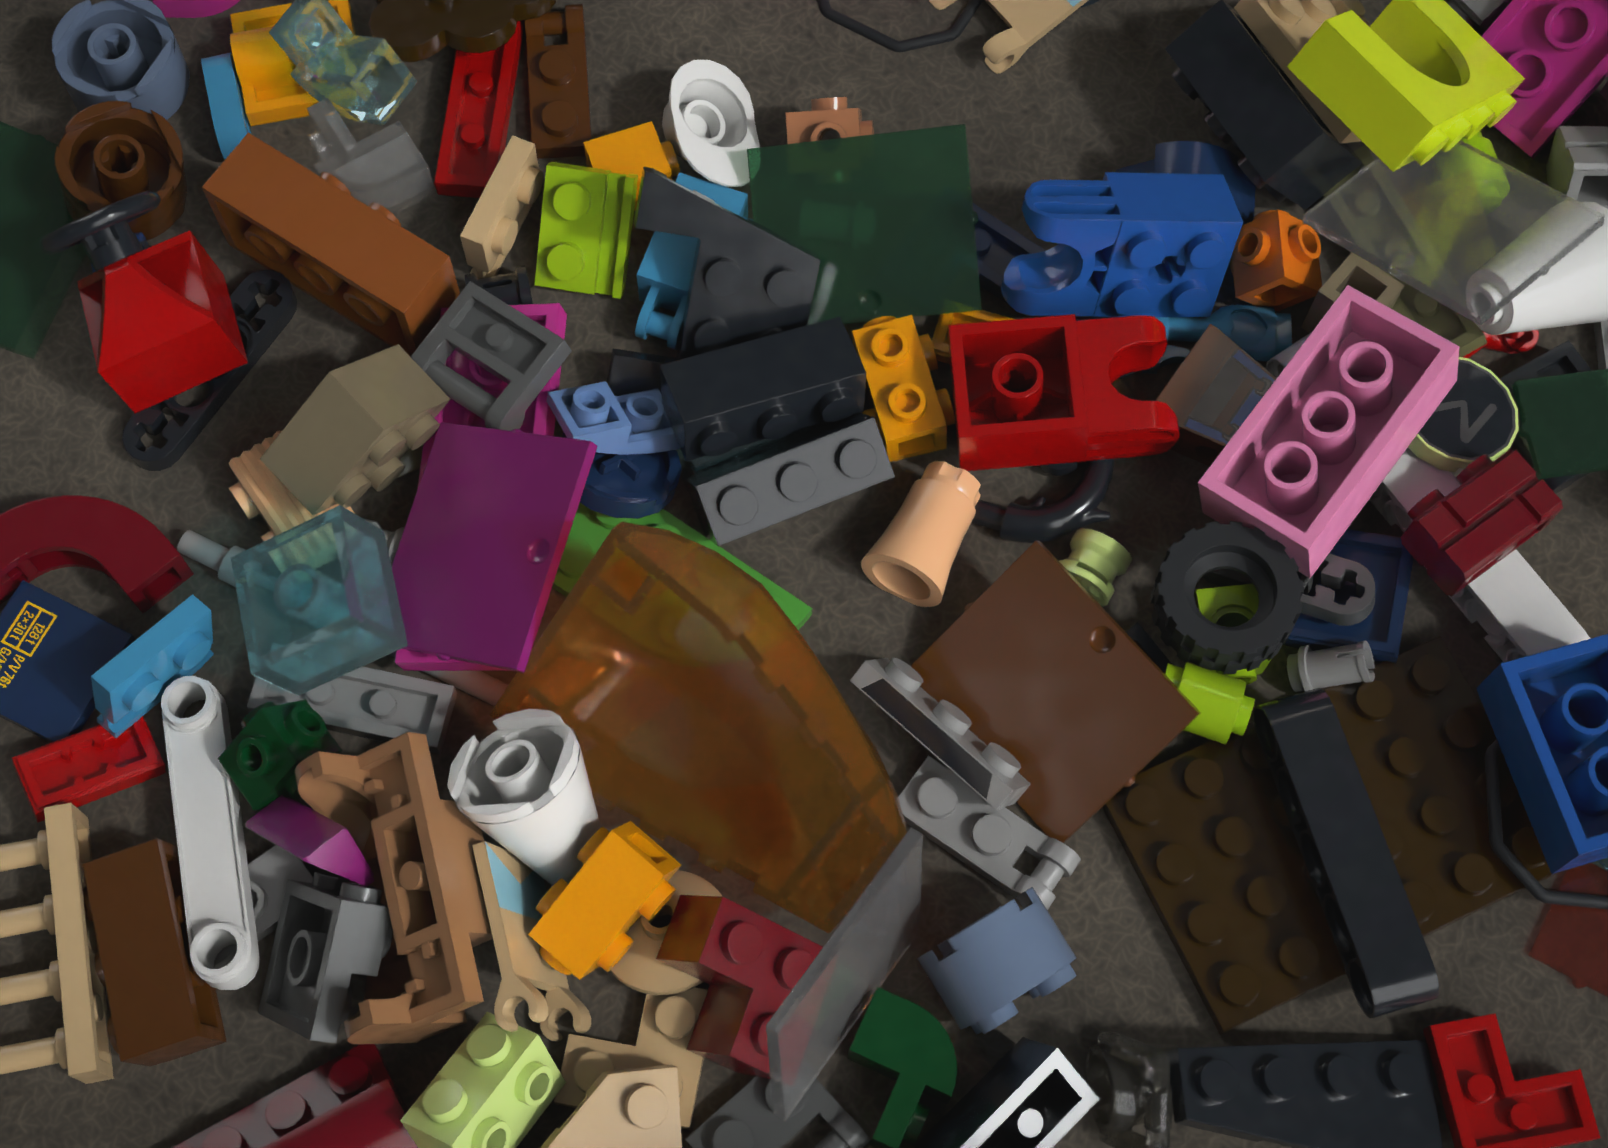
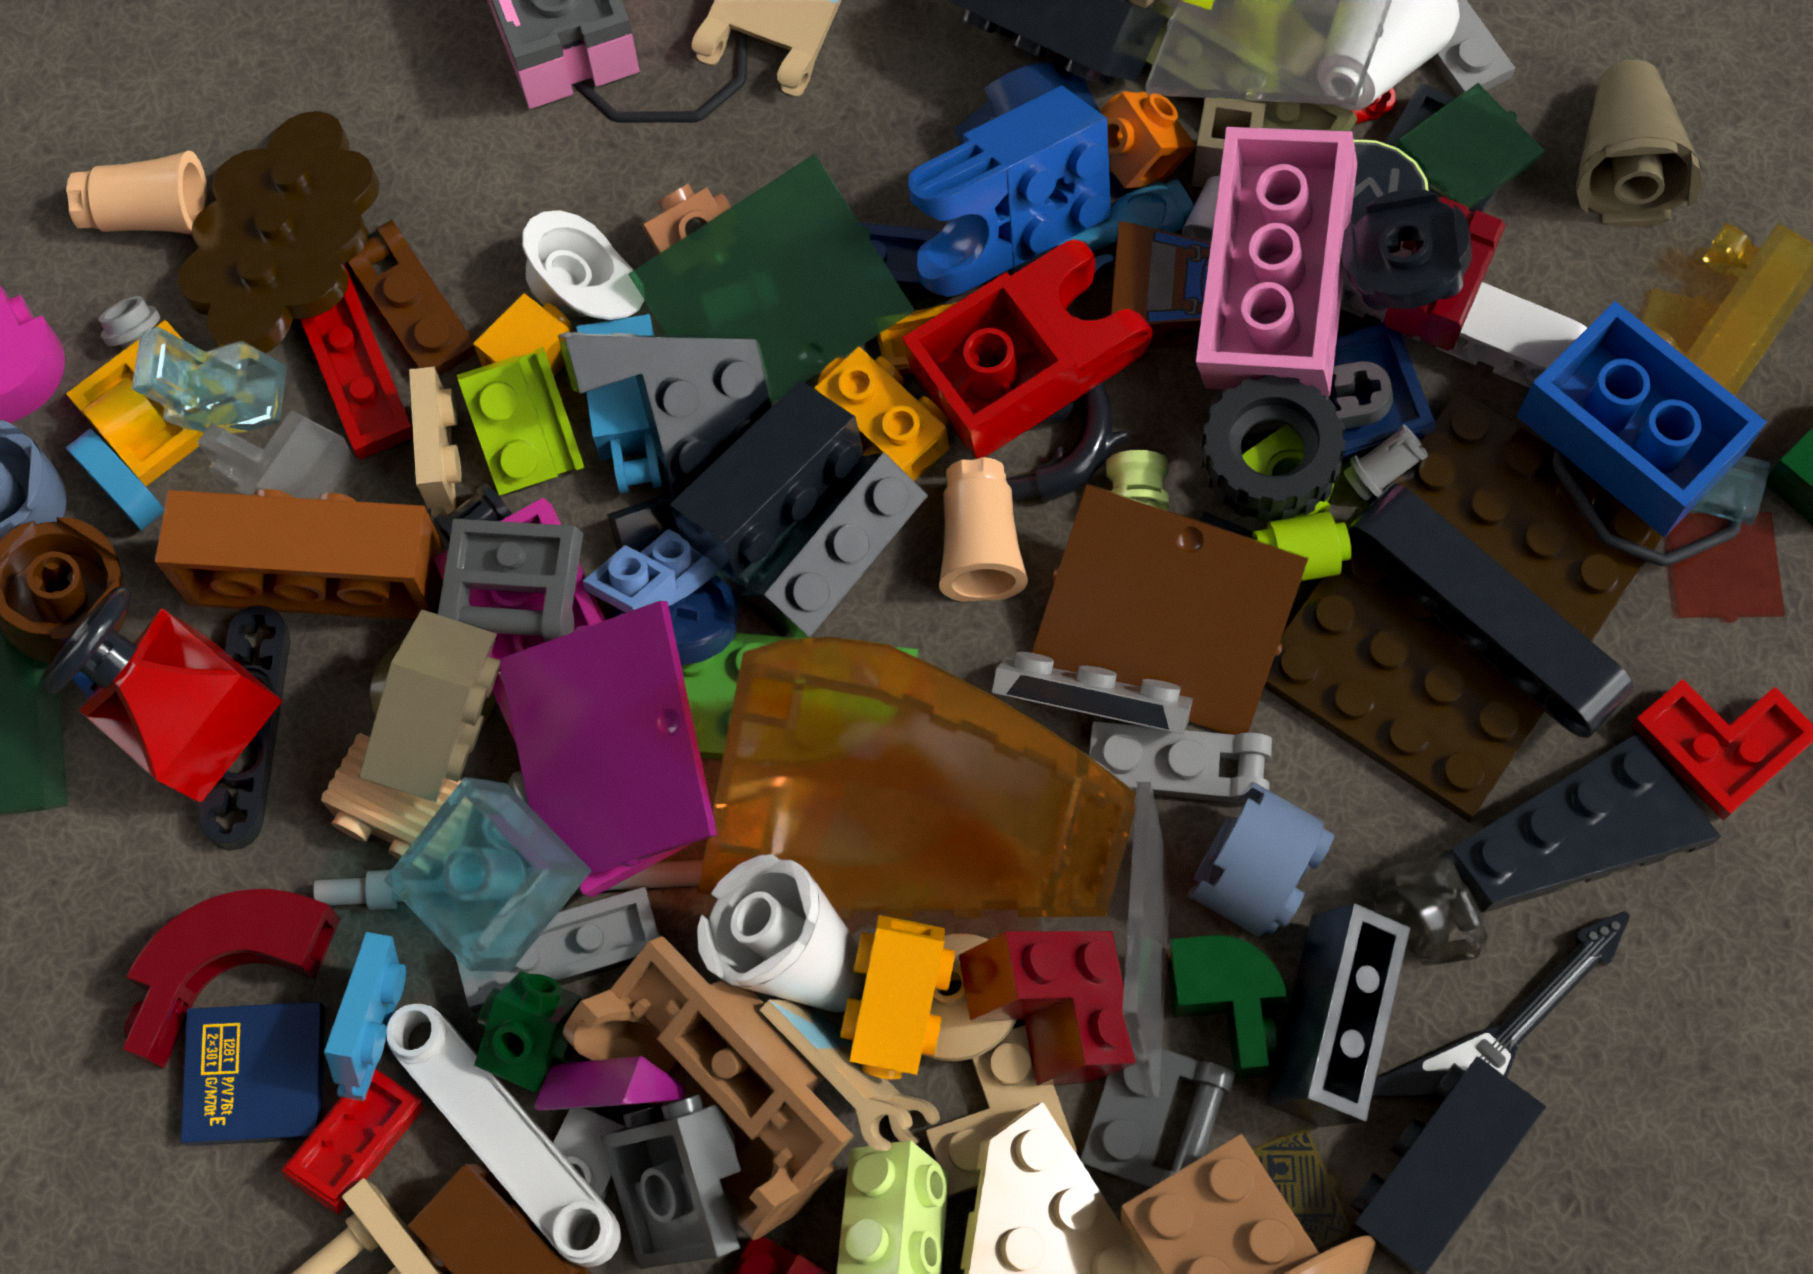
camera: 25 degrees left, 0 degrees up
(1447, 513) = (1412, 280): none -> black plate

